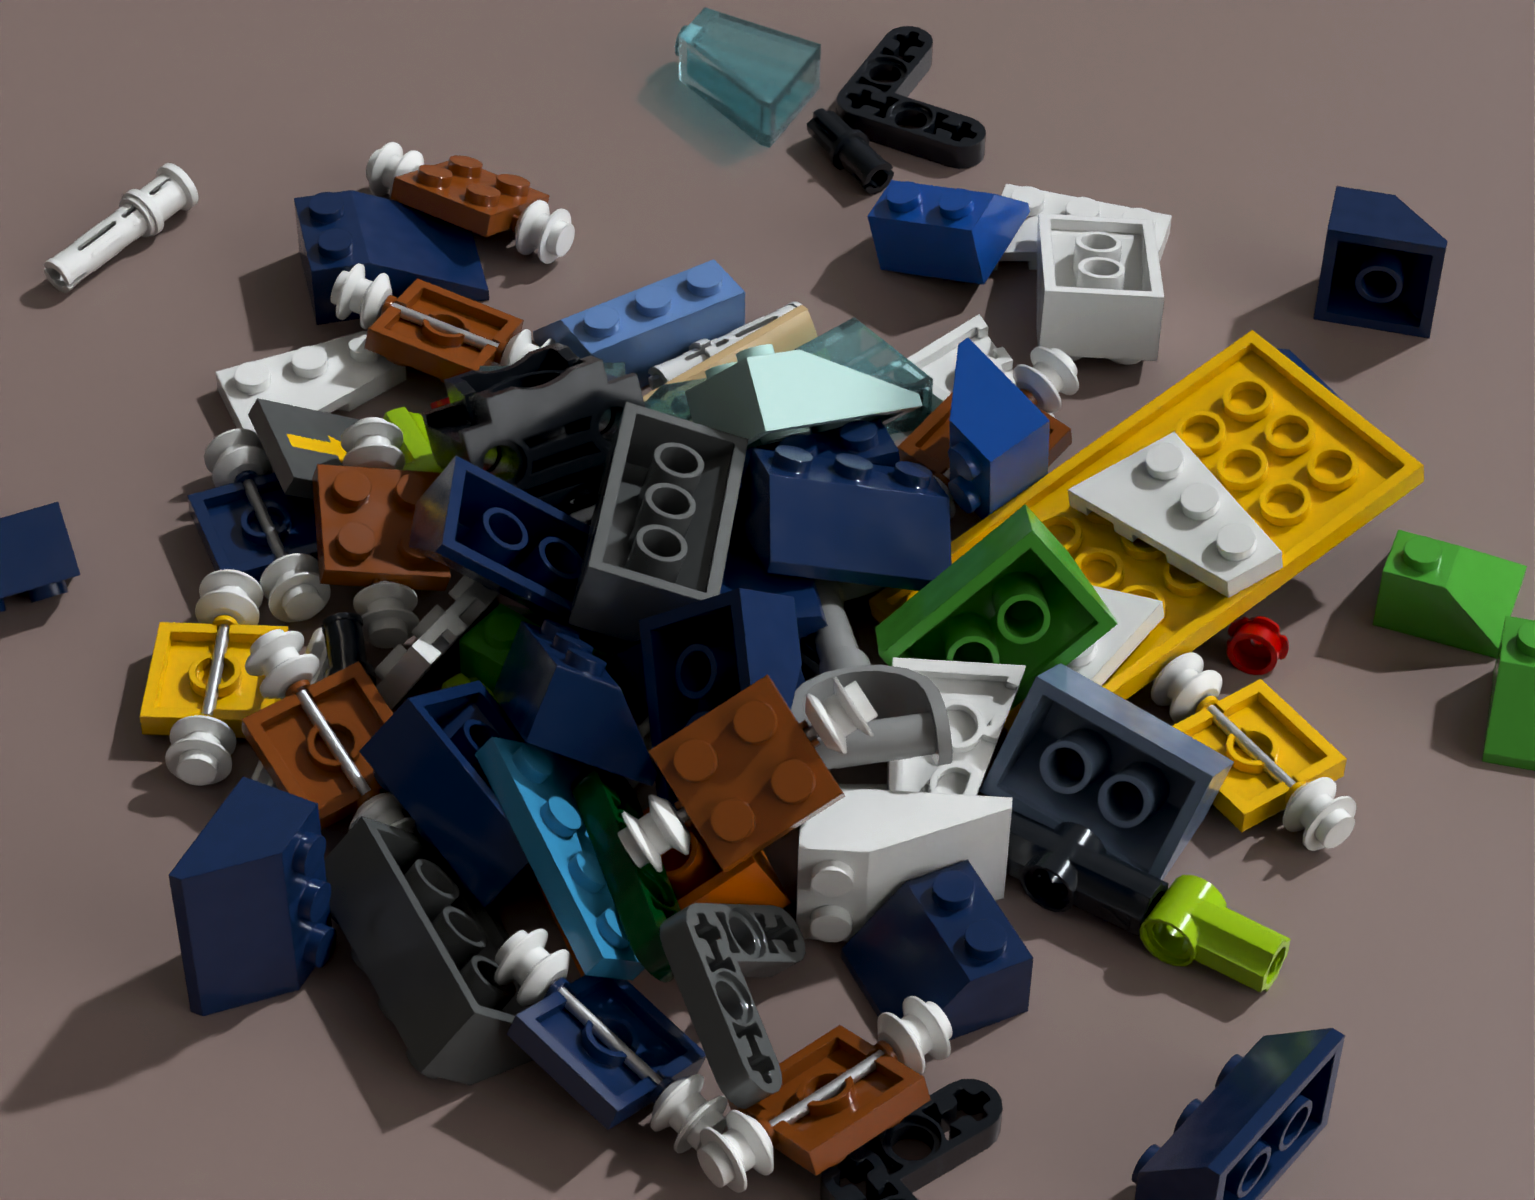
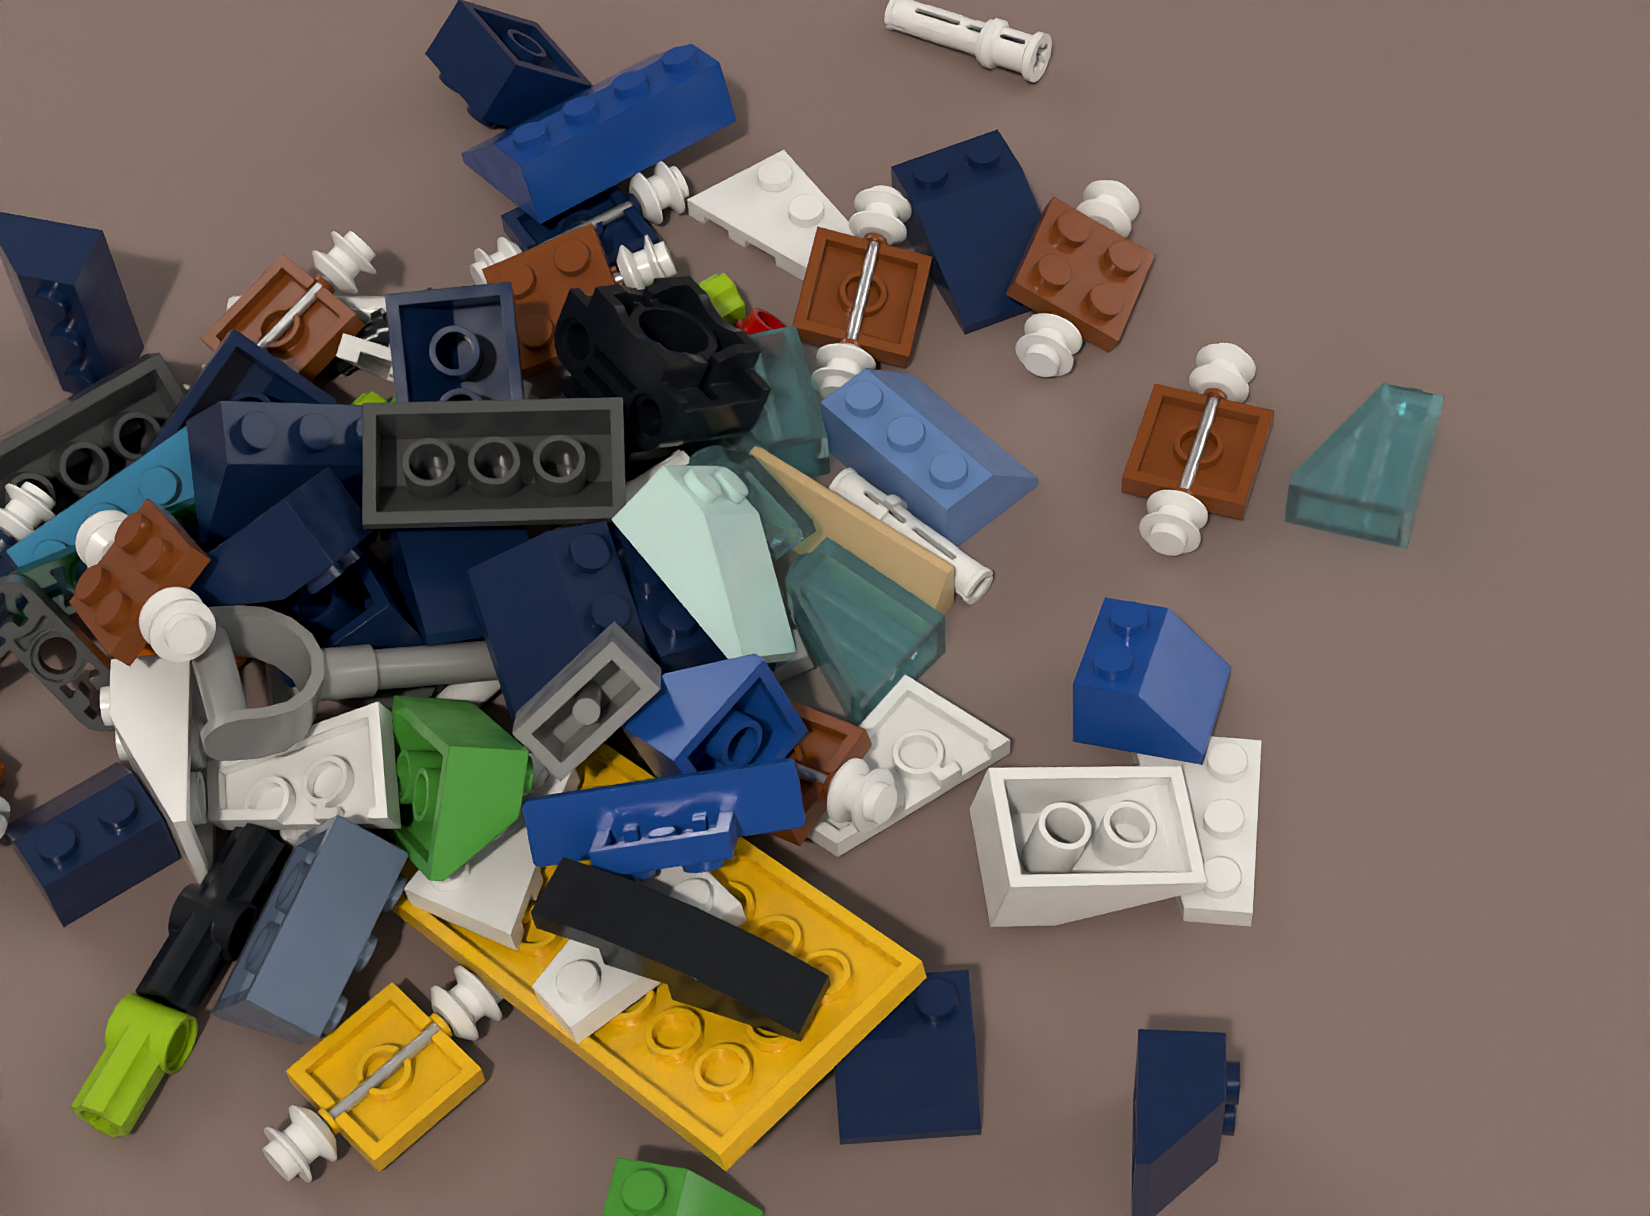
camera: 85 degrees right, 10 degrees up
(140, 480) = (606, 132): none -> blue slope
(200, 679) = (403, 233): plate -> none
(298, 441) = (671, 213): dark grey tile -> none
(692, 167) = (1198, 450): none -> dark orange plate
(850, 151) = (1279, 586): black axle -> none
(882, 107) = (1389, 606): black beam -> none
(963, 470) = (587, 701): none -> light grey brick
(1096, 458) = (665, 820): none -> blue bracket
(1226, 459) = (682, 946): none -> black slope
(1256, 645) = (550, 1068): red plate -> none

